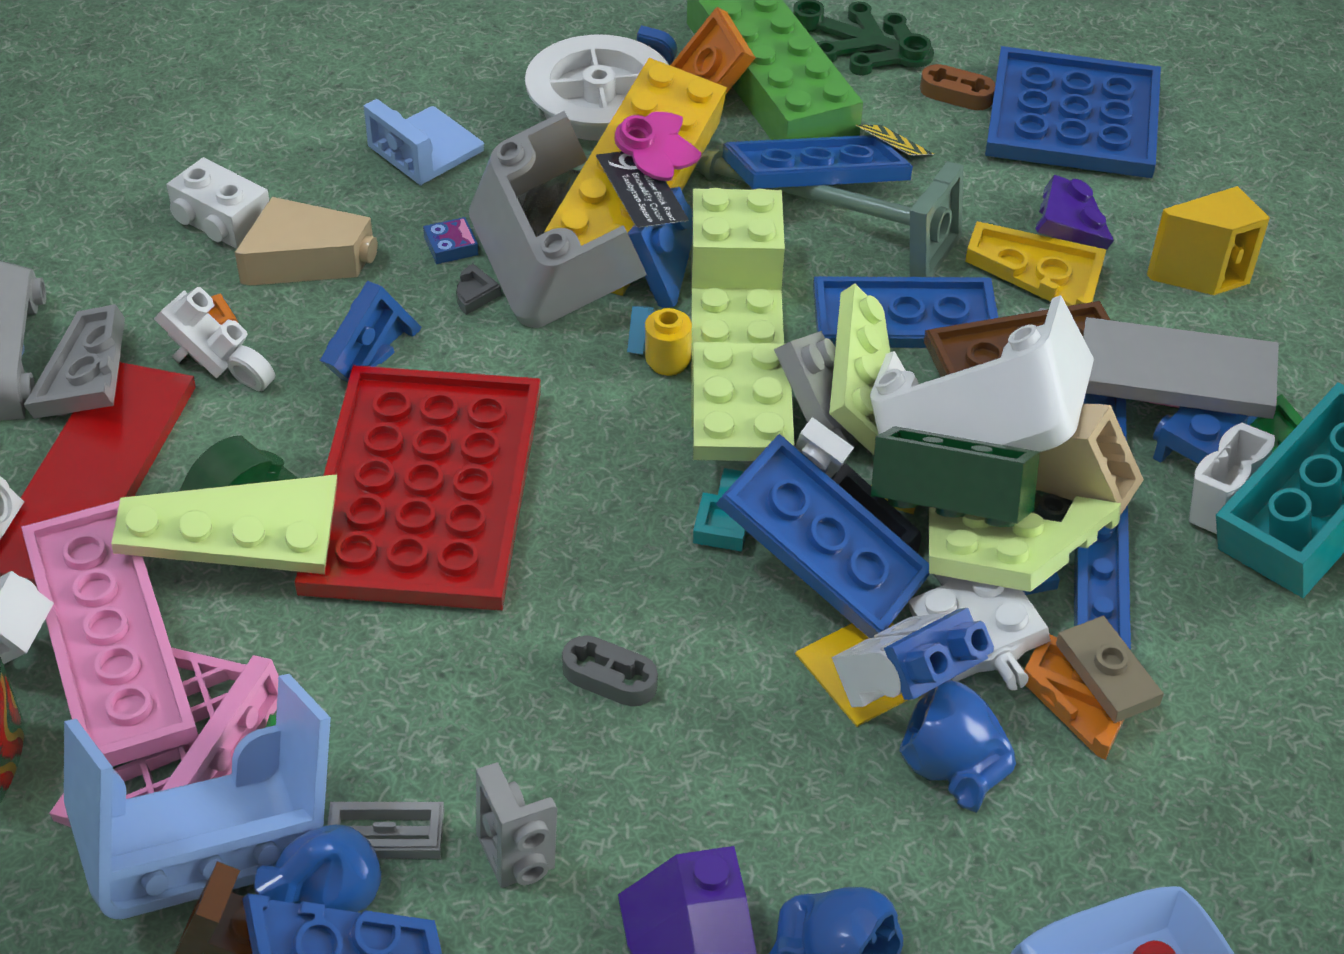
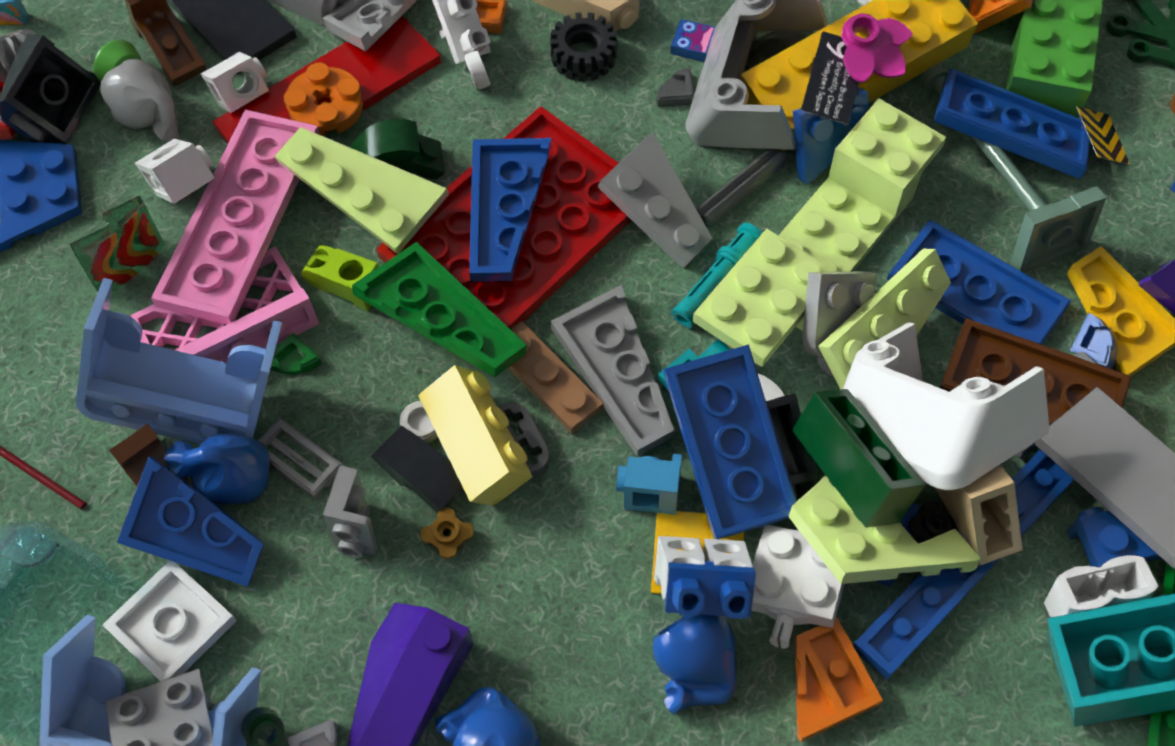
camera: 40 degrees right, 15 degrees up
(84, 460) = (322, 82): none -> orange plate
(278, 627) = (336, 271): none -> lime leg
(335, 280) = (583, 30): none -> black tyre
(368, 332) = (567, 86): blue wing -> none
(400, 463) = (502, 202): none -> blue wing
(419, 588) = (438, 306): none -> green wing
(489, 716) = (417, 421): none -> white tile
(536, 750) = (420, 466): none -> black slope
(549, 385) = (657, 201): none -> light grey wing
(567, 682) = (475, 435): none -> light yellow brick
(581, 601) = (554, 382): none -> medium nougat plate
(614, 339) = (741, 185): none -> dark grey axle
(618, 808) = (448, 545): none -> pearl gold plate
(628, 547) = (611, 359): none -> light grey wing
(636, 339) = (764, 182): dark azure tile -> none
(668, 341) = (768, 208): yellow brick -> none
(669, 404) = (725, 260): none -> teal pin
(776, 627) = (650, 484): none -> dark azure brick
(823, 447) = (781, 373): white hinge -> none
(1038, 292) = (1096, 341): none -> tile
(1109, 669) = (854, 681): dark tan plate -> none

